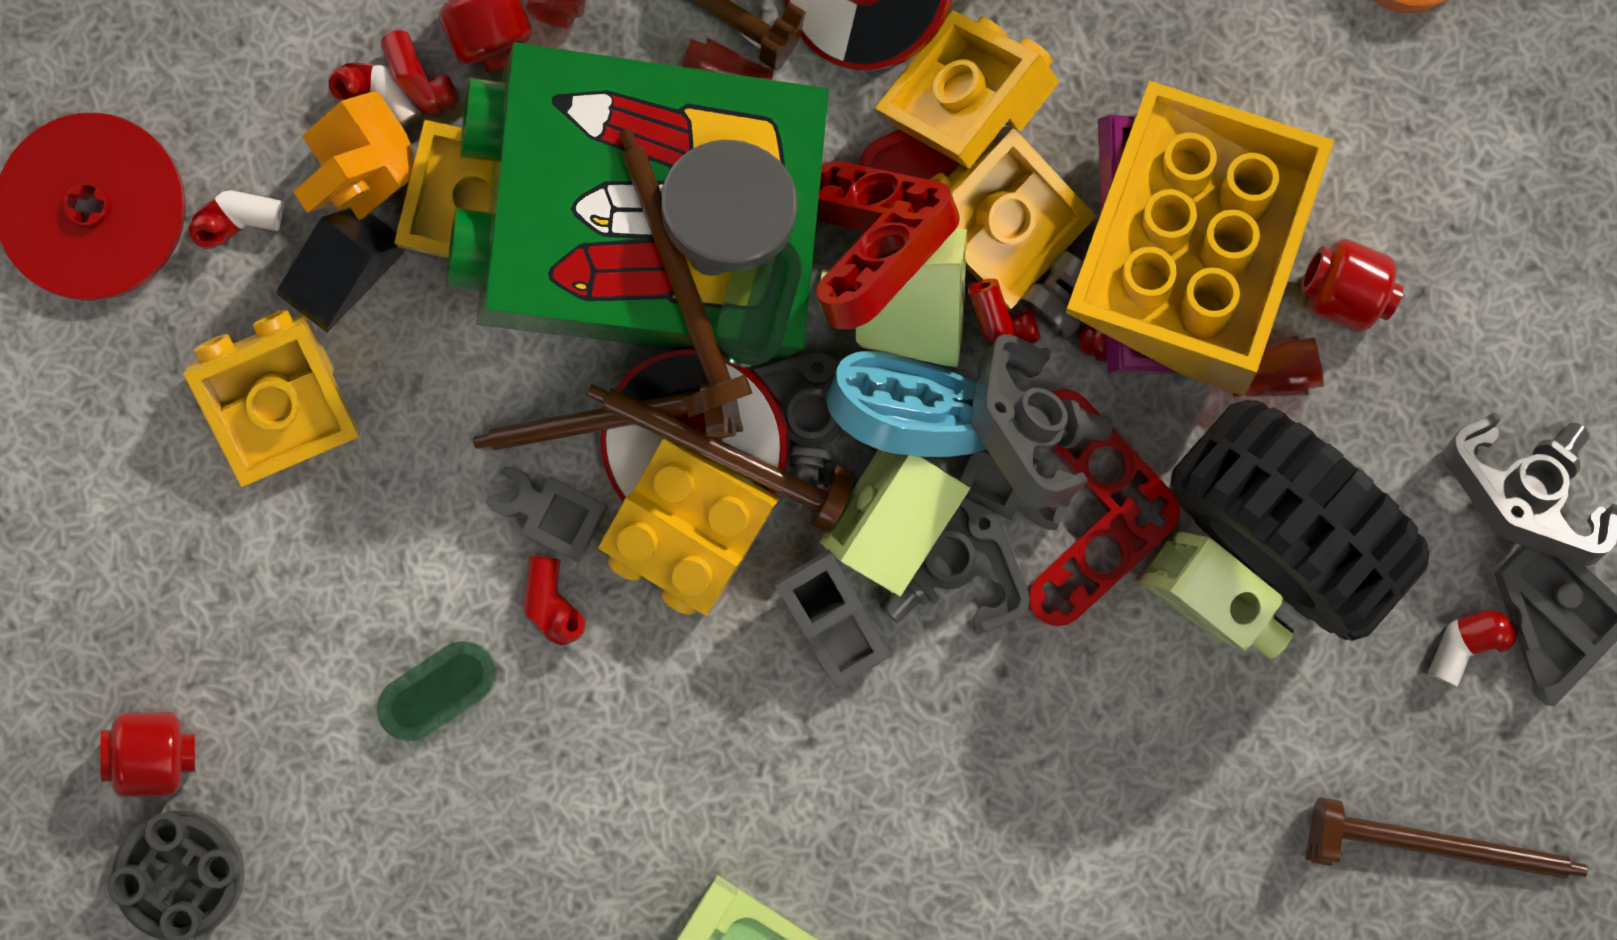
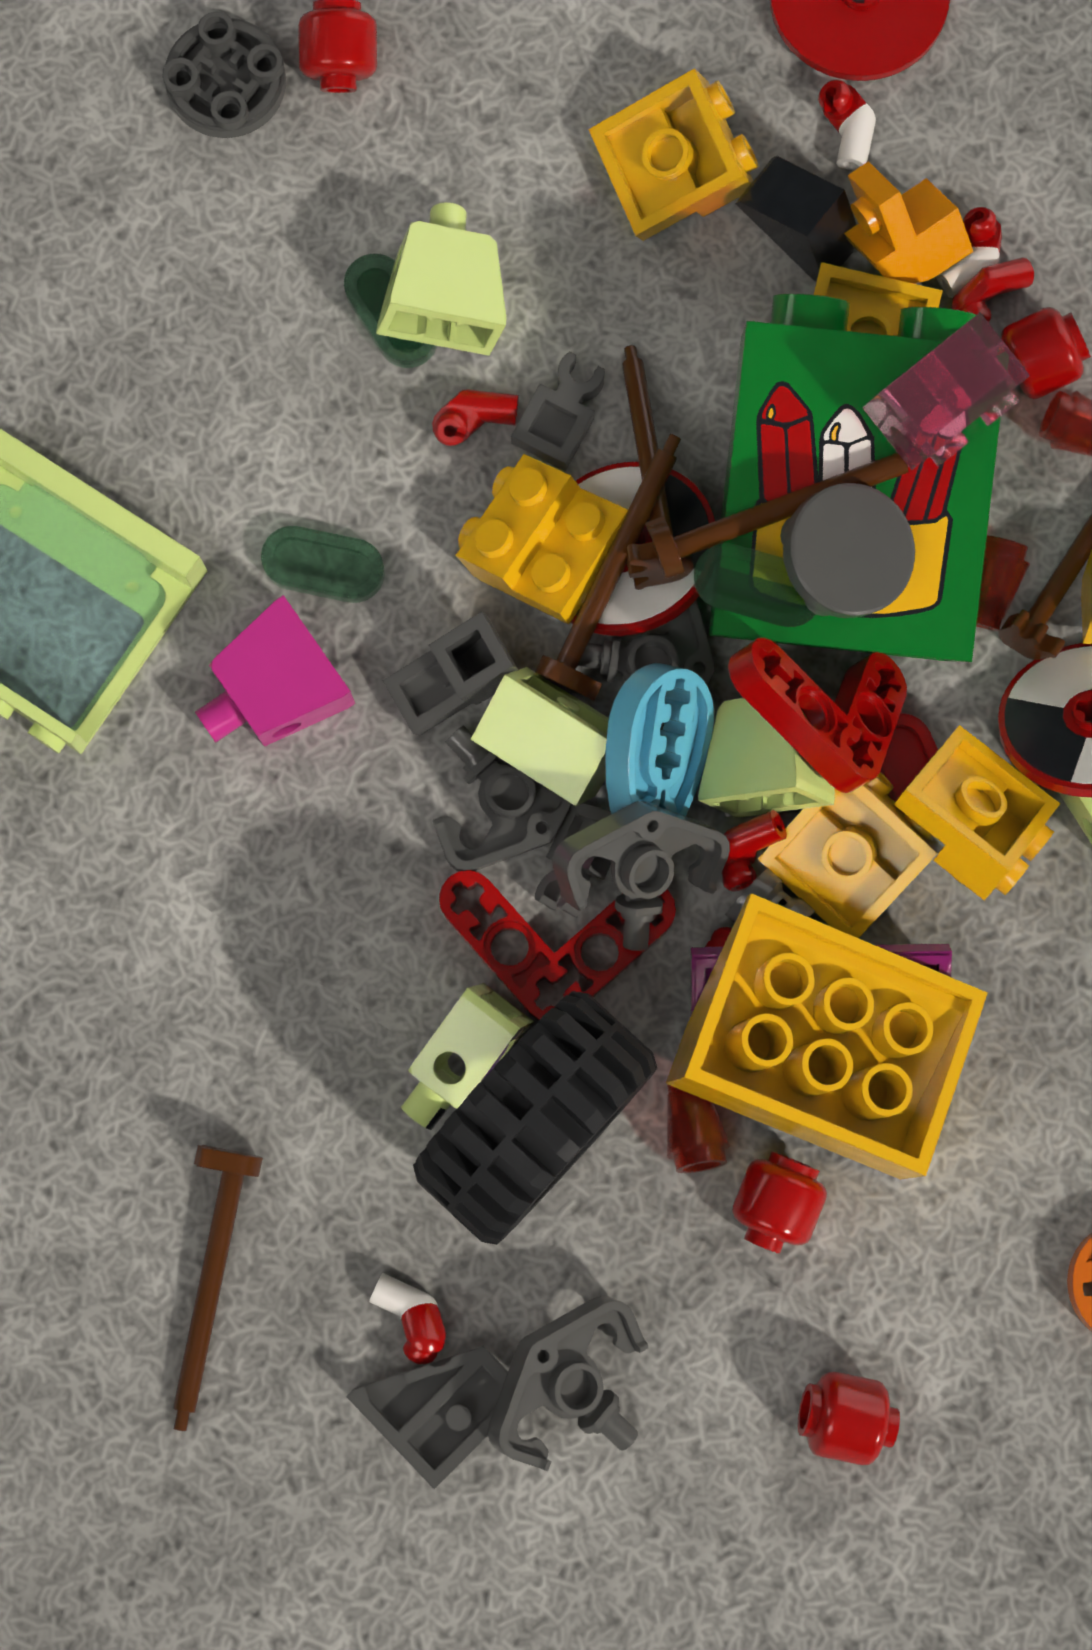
camera: 90 degrees right, 5 degrees down
(415, 633) = (445, 286): none -> yellowish green torso
(570, 101) = (946, 392): none -> clear pink brick
(710, 754) = (323, 564): none -> clear green tile
(837, 802) = (273, 680): none -> dark pink torso
(1556, 220) = (847, 1418): none -> red head

